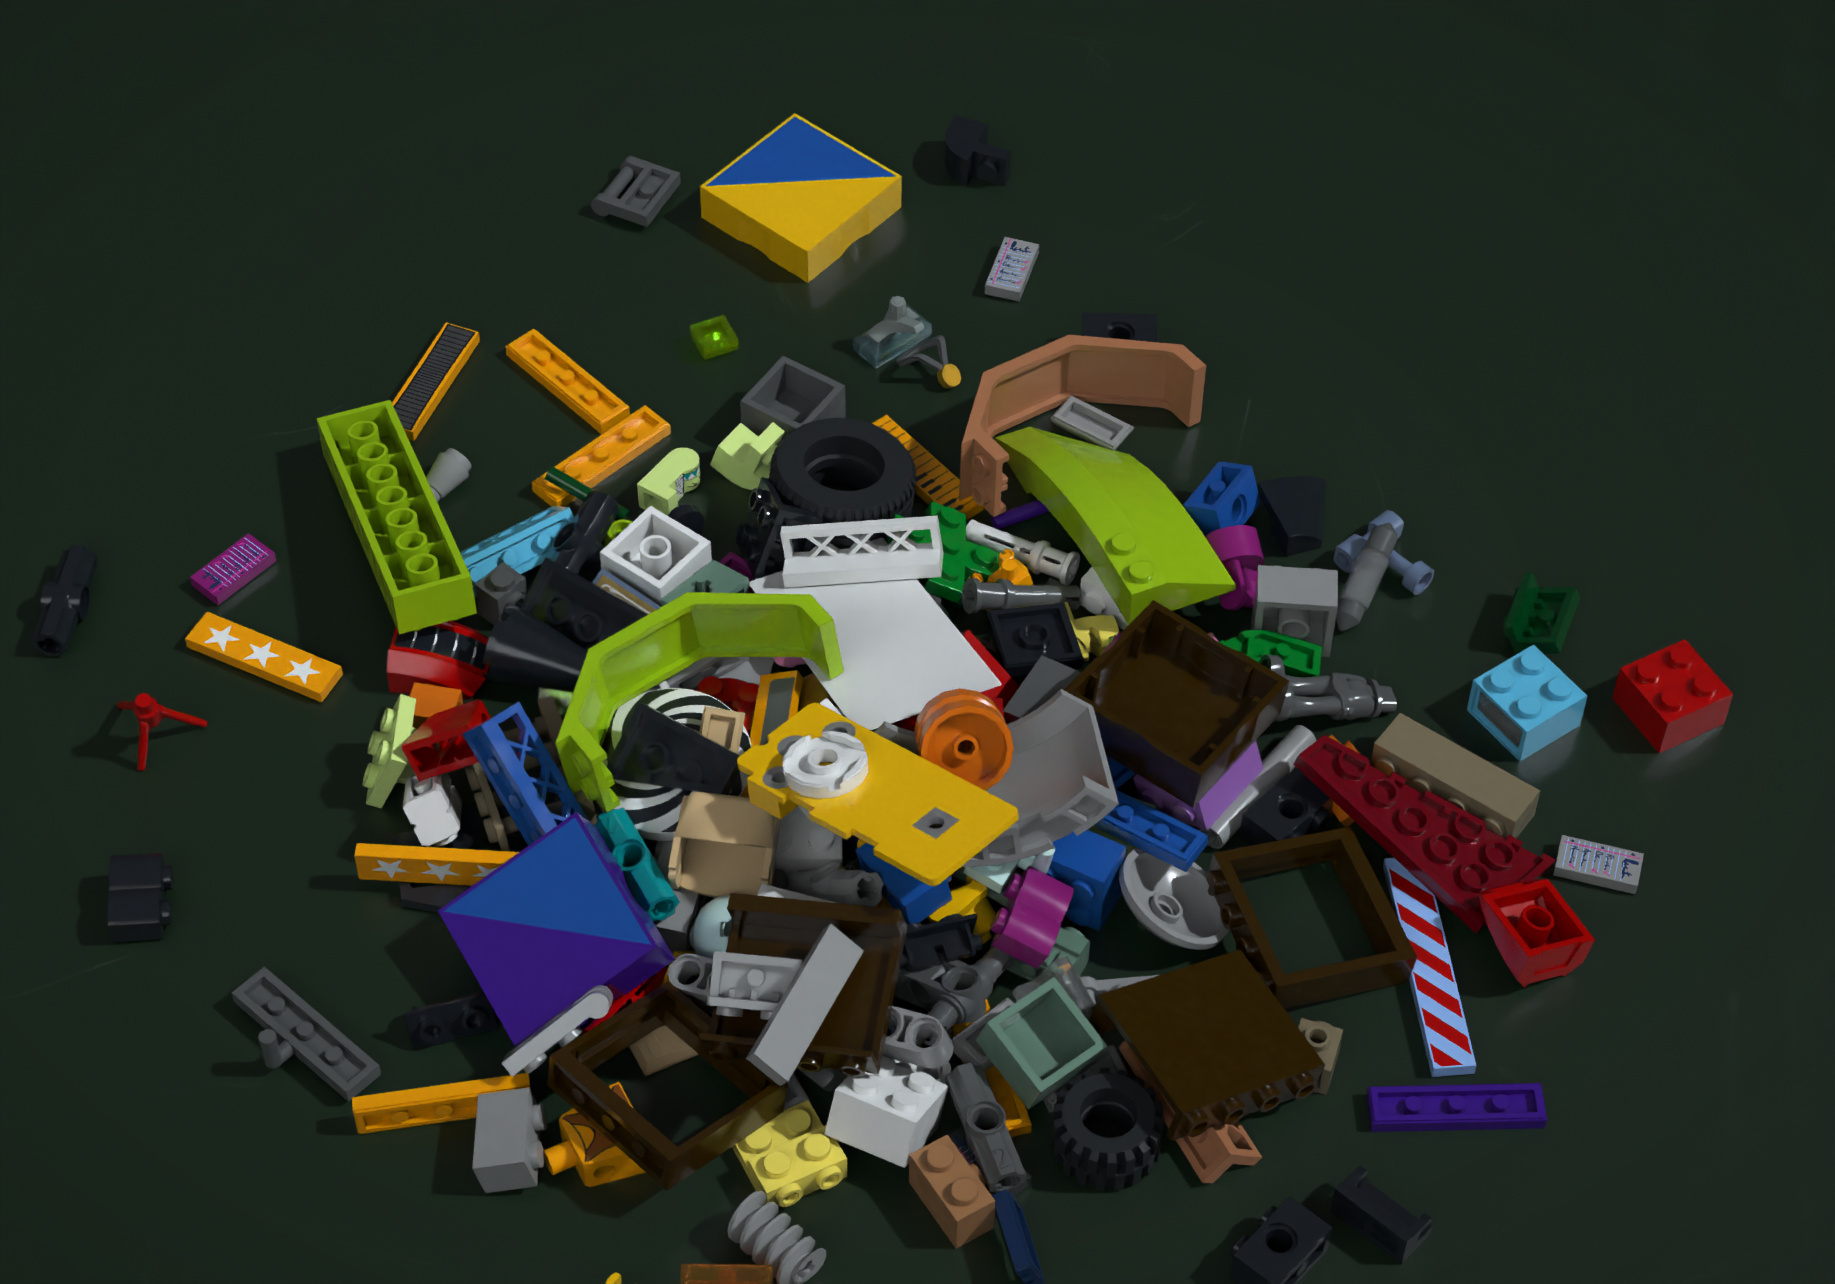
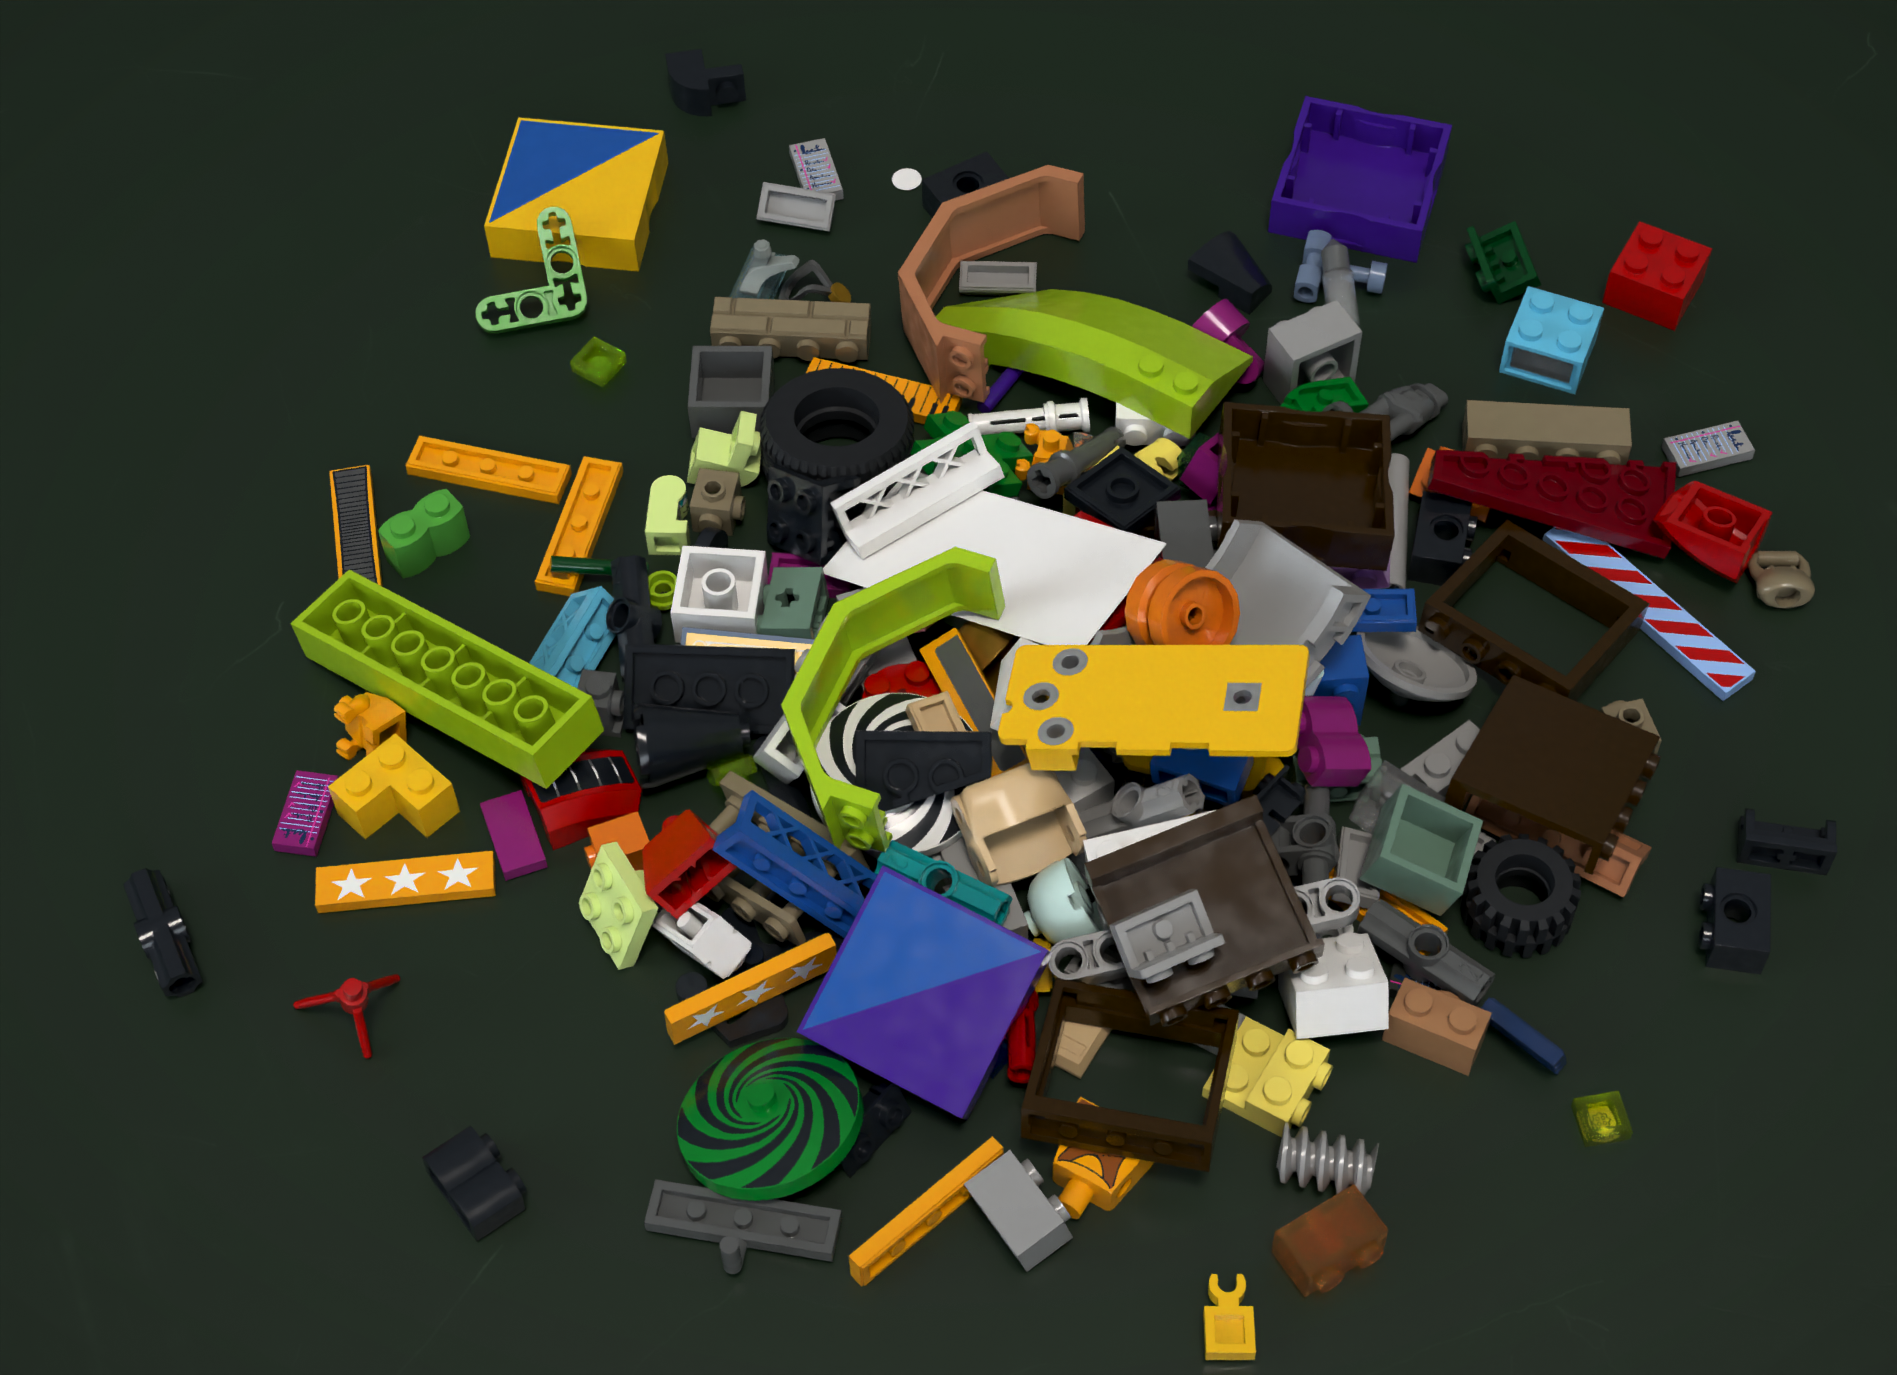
camera: 30 degrees left, 5 degrees up
(304, 577) = (390, 783): none -> yellow brick
(327, 526) = (369, 722): none -> light orange piece
(365, 664) = (513, 835): none -> magenta tile
(378, 969) = (770, 1119): none -> dish
(447, 472) = (449, 604): light grey cone -> none
(475, 403) = (428, 531): none -> bright green brick
(560, 1029) = (1003, 1079): light grey plate -> none
(643, 198) = (426, 260): dark grey plate -> none
(715, 266) = (547, 295): none -> bright green beam
(716, 489) = (717, 501): none -> dark tan brick
(805, 1005) = (1234, 929): light grey tile -> none
(815, 781) = (1095, 716): white tile -> none
(887, 384) = (794, 327): none -> dark tan brick
(969, 288) = (796, 206): none -> light grey tile
(1084, 306) = (906, 179): none -> white sticker
(1224, 497) = (1173, 285): blue brick -> none
(1456, 1107) = (1764, 716): dark purple tile -> none
(1471, 488) = (1360, 178): none -> dark purple tile
(1565, 1009) = (1781, 582): none -> dark tan piece

